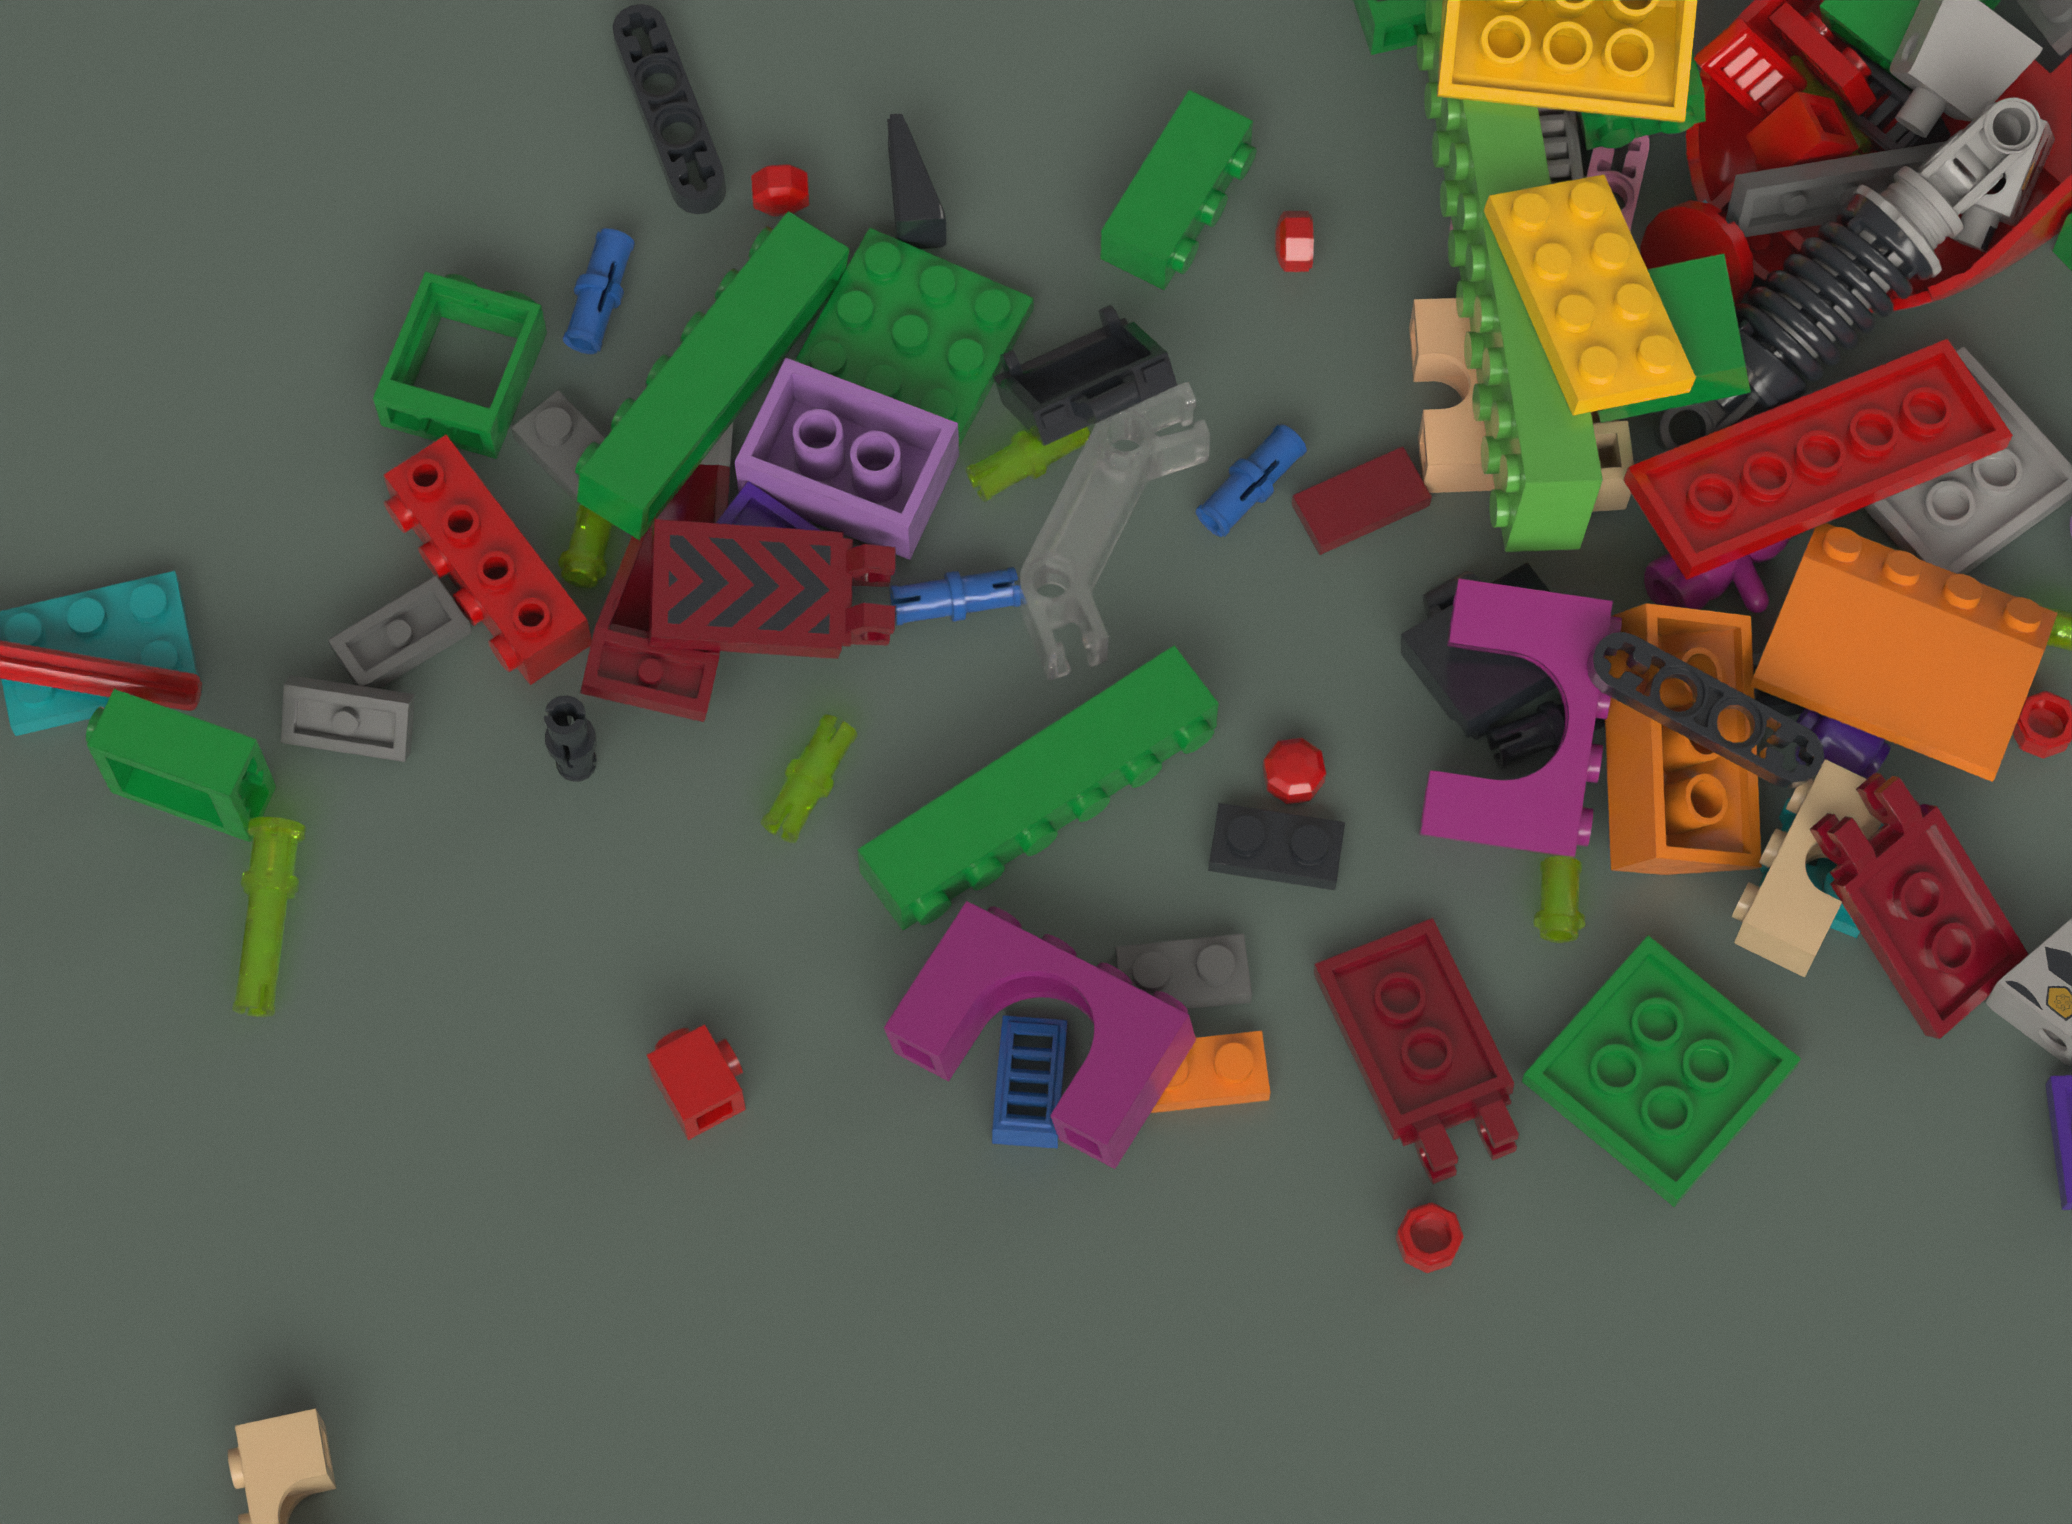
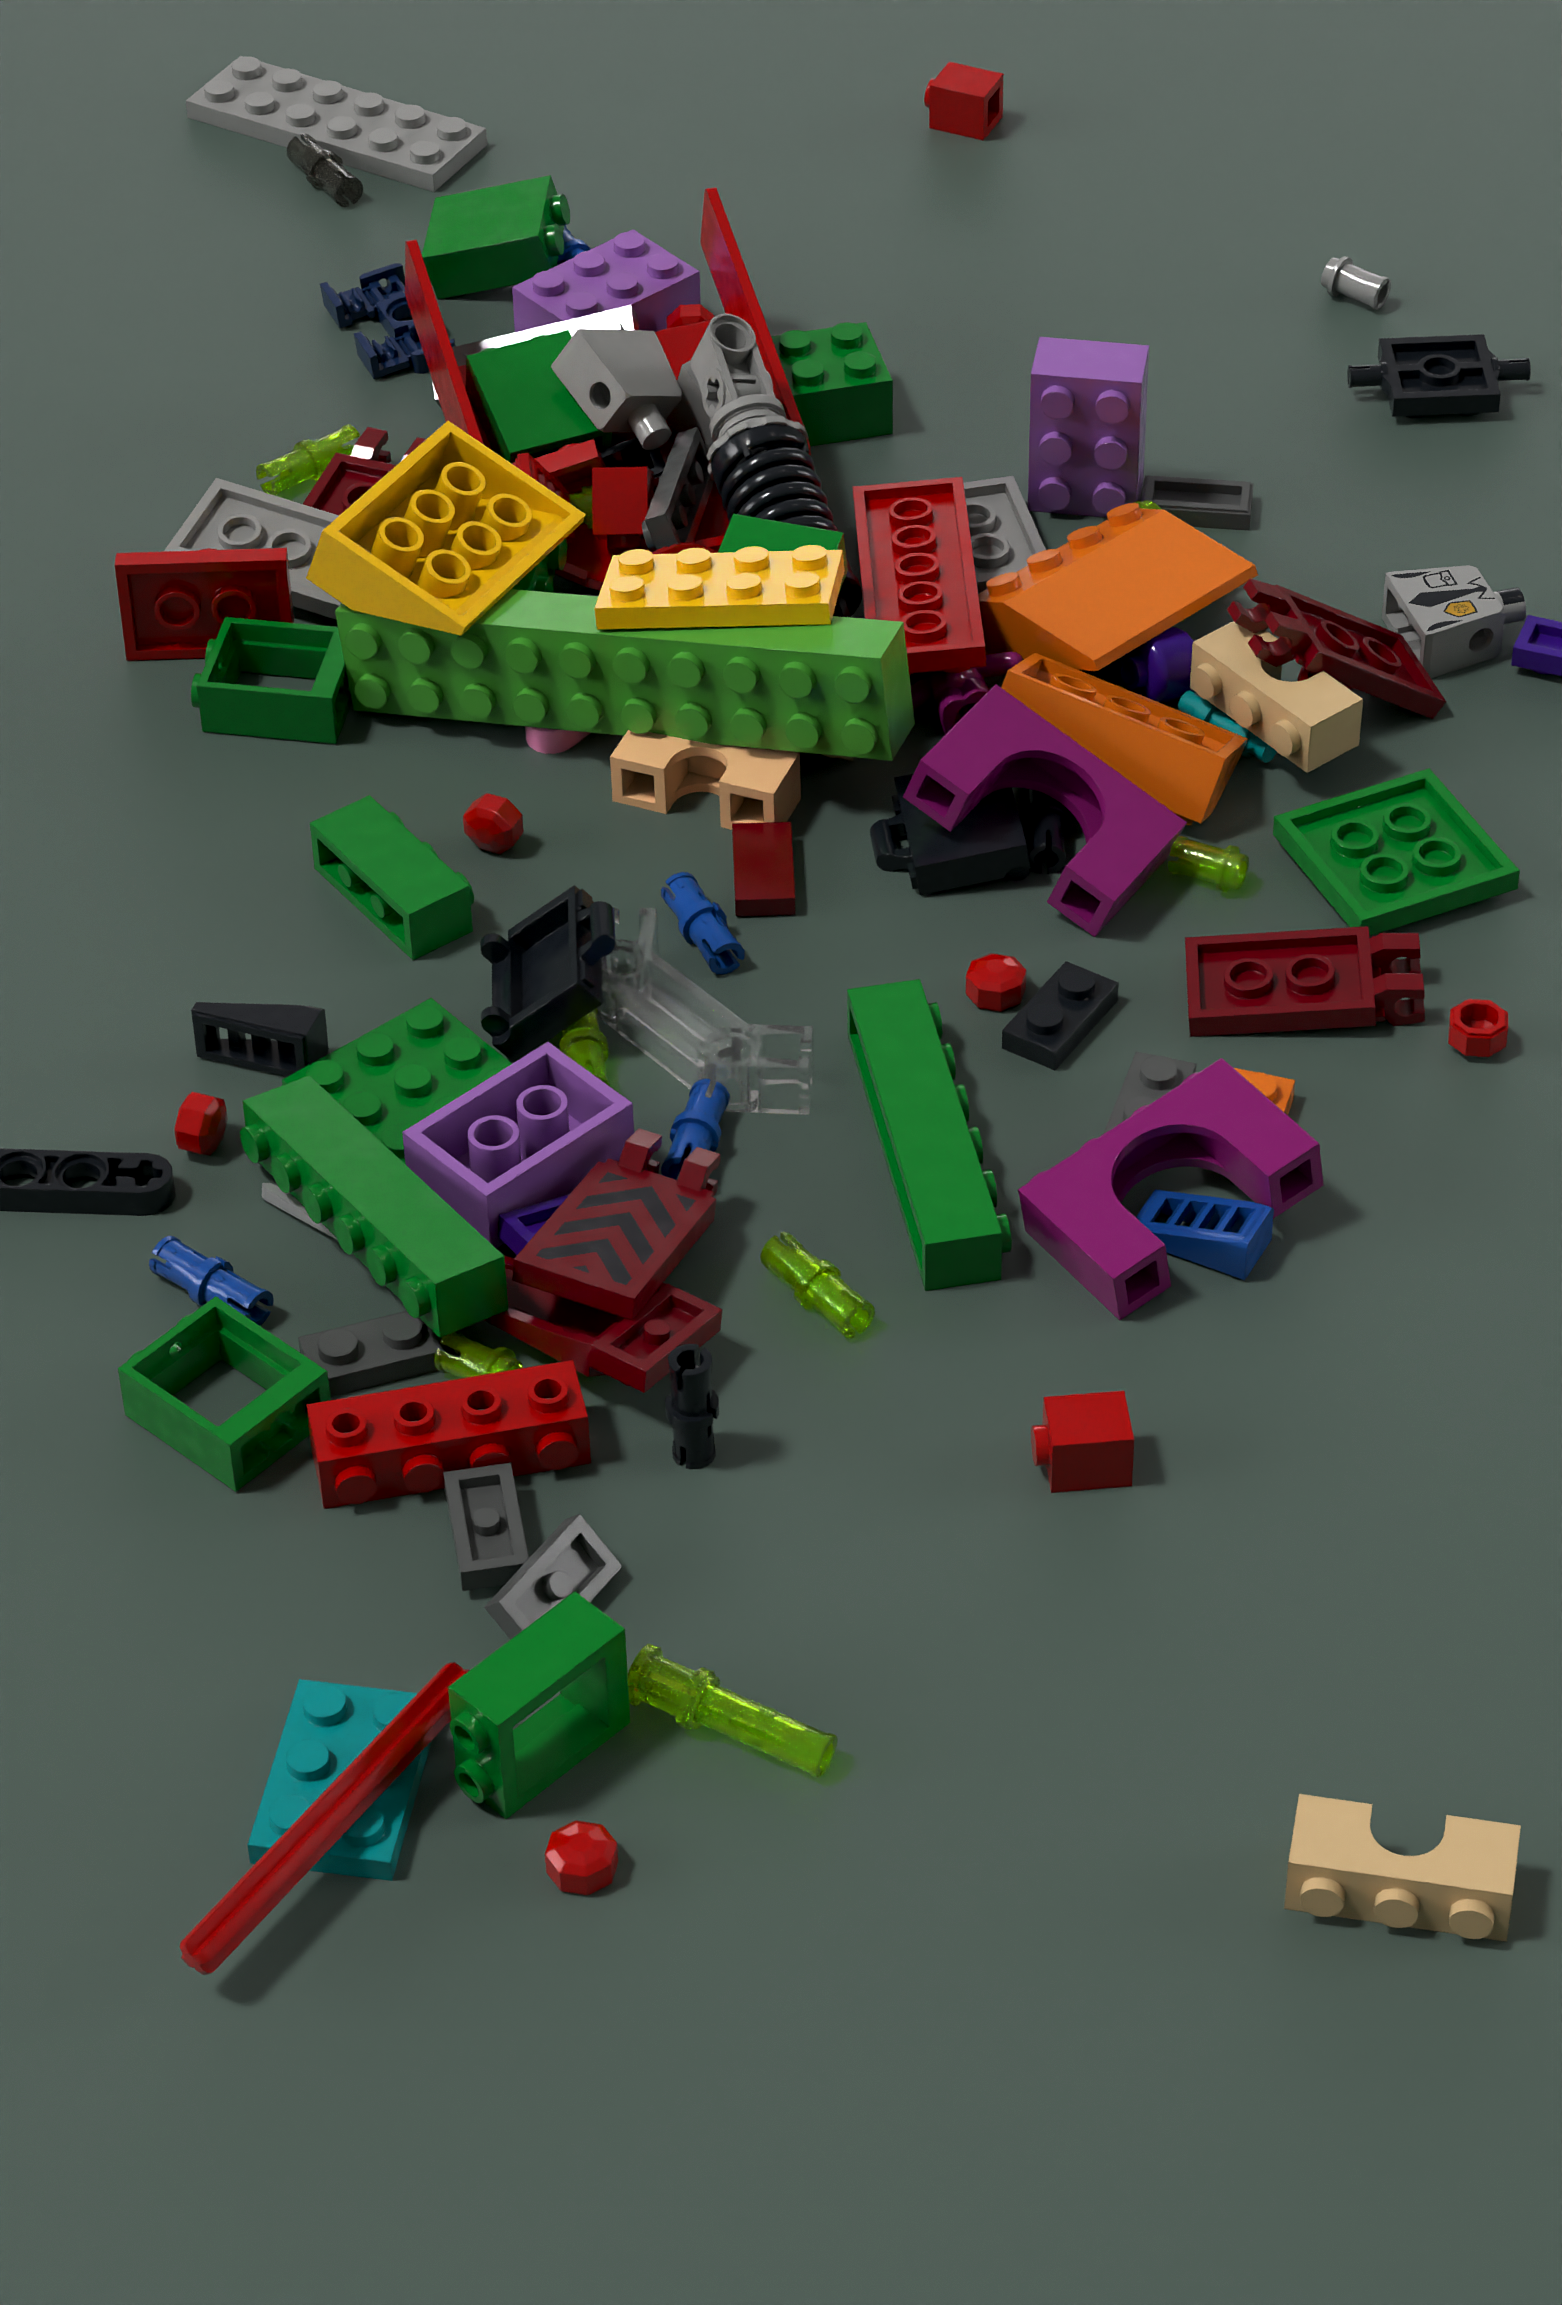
camera: 65 degrees left, 25 degrees down
(77, 867) = (581, 1857): none -> red tile
(1700, 720) = (1068, 694): black beam -> none

